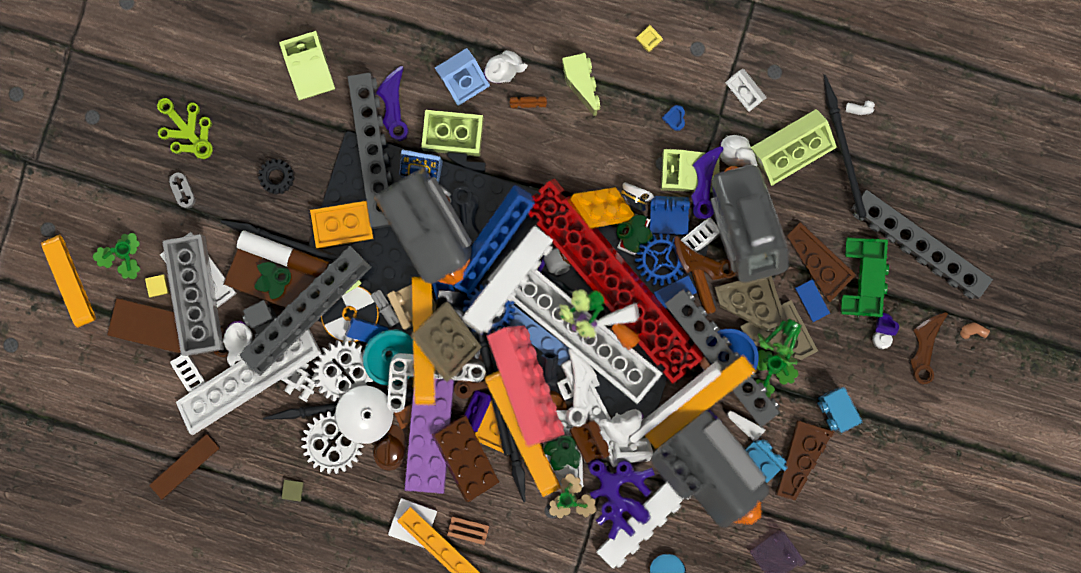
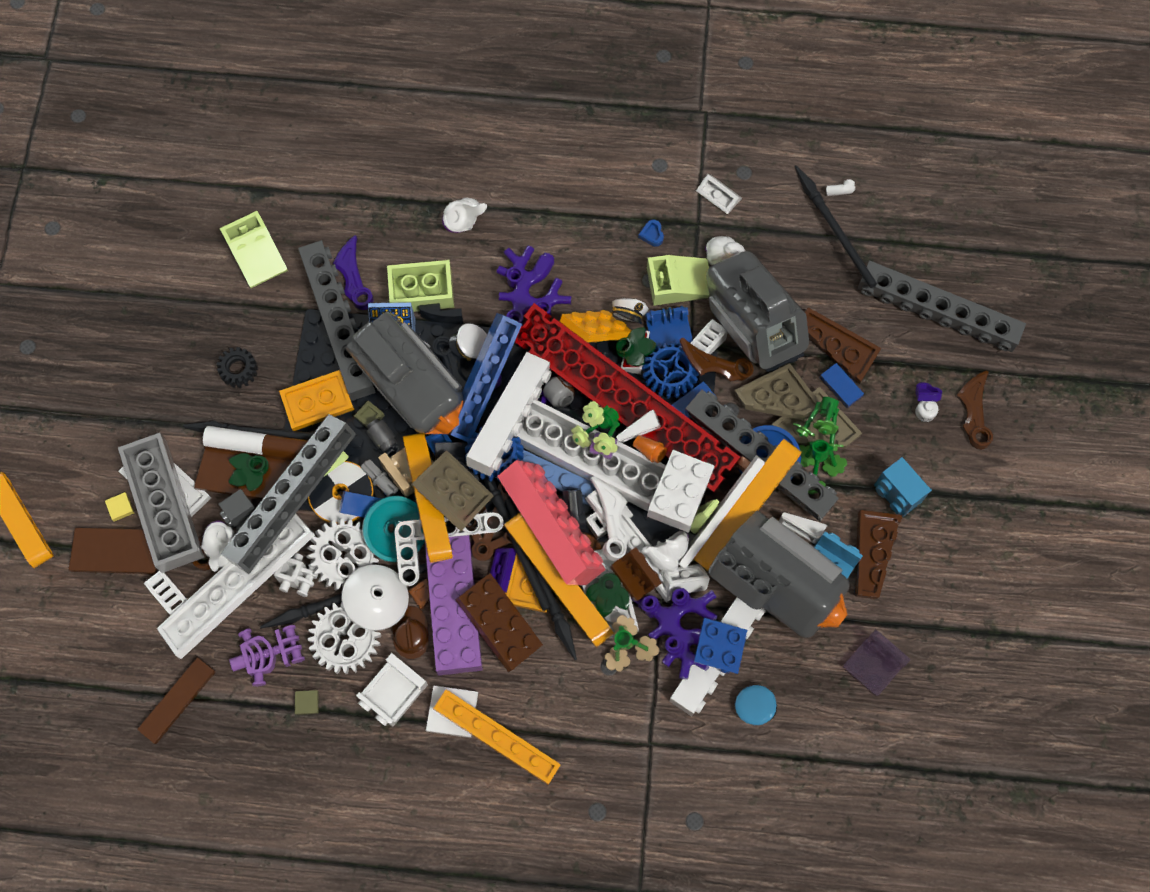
camera: 20 degrees left, 15 degrees down
(123, 248) = (78, 469): bright green plant -> none
(178, 192) = (139, 399): light grey beam -> none
(188, 131) = (132, 340): lime plant -> none
(251, 445) = (250, 661): none -> medium lavender piece
(364, 496) = (392, 691): none -> white panel
(386, 247) = (368, 414): none -> olive tile
(393, 269) = (381, 434): none -> flat silver brick
(462, 76) = (421, 232): light blue slope -> none
(464, 537) = (537, 707): nougat tile -> none
(486, 197) = (467, 341): none -> white piece
(528, 102) = (495, 245): dark orange axle -> none
(541, 160) = (525, 279): none -> dark purple plant
(577, 77) = (546, 211): yellowish green slope -> none
(643, 381) = (680, 491): none -> white brick
(647, 520) = (720, 646): none -> blue hinge
(649, 38) = (608, 163): light yellow tile -> none
(657, 400) = (703, 514): none -> yellowish green slope
(704, 168) = (695, 270): dark purple piece -> none
(704, 291) = (721, 391): dark orange axle -> none
(794, 147) = (785, 234): yellowish green slope -> none
(871, 277) = (898, 348): green bracket -> none
(974, 328) = (1021, 380): nougat arm -> none

